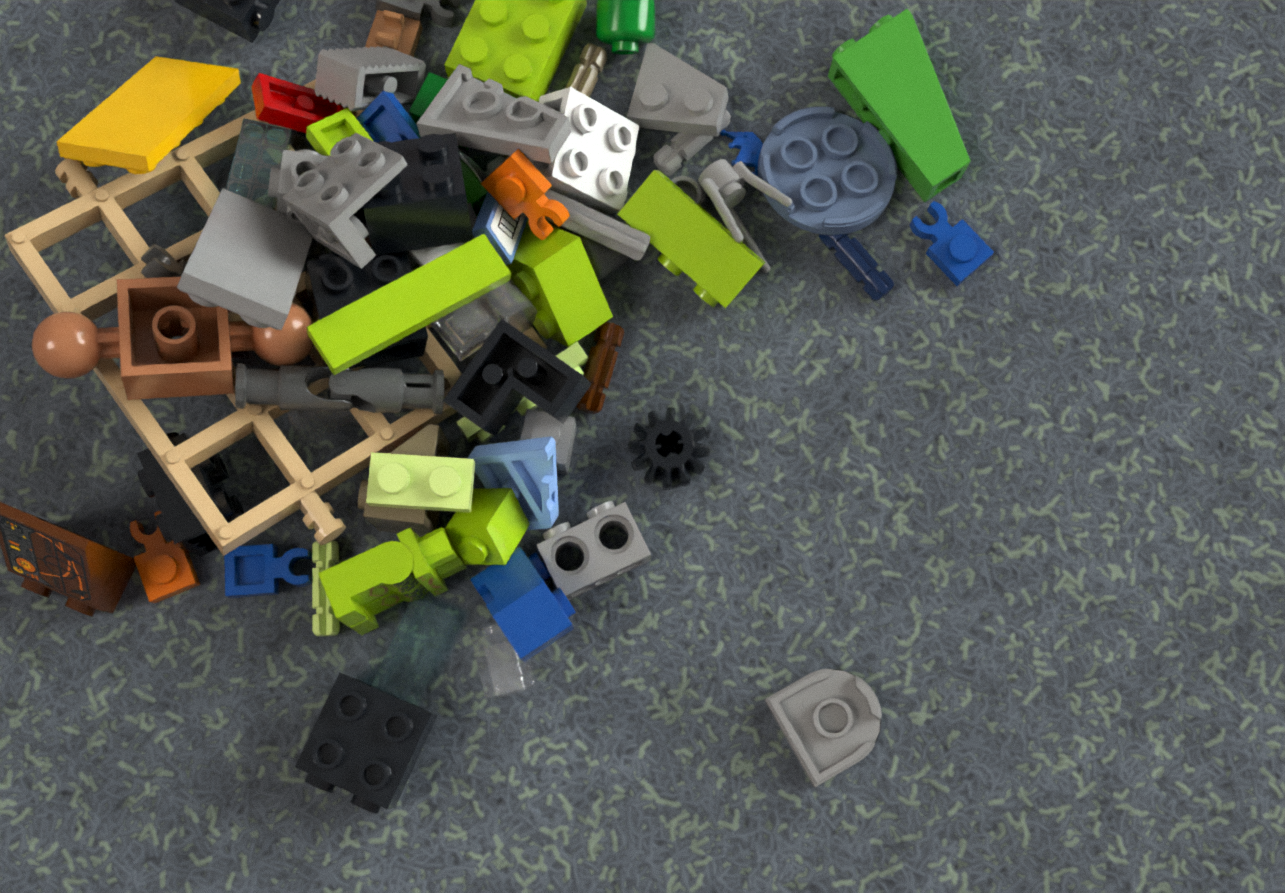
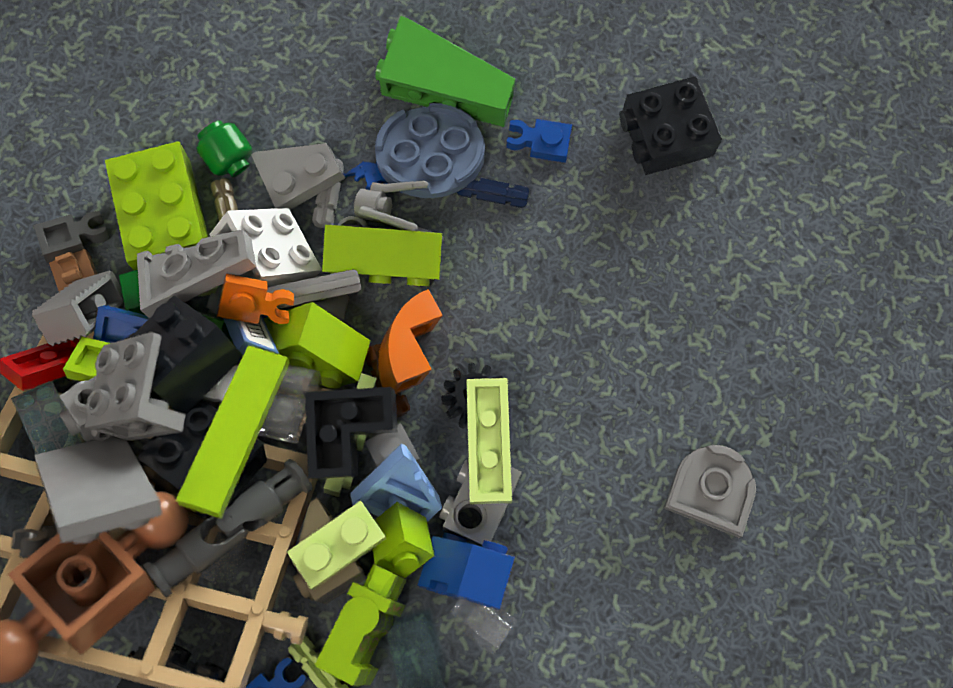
camera: 40 degrees left, 5 degrees down
(626, 356) = (400, 356): none -> orange brick
(641, 499) = (488, 441): none -> yellowish green plate
(1093, 330) = (670, 125): none -> black brick

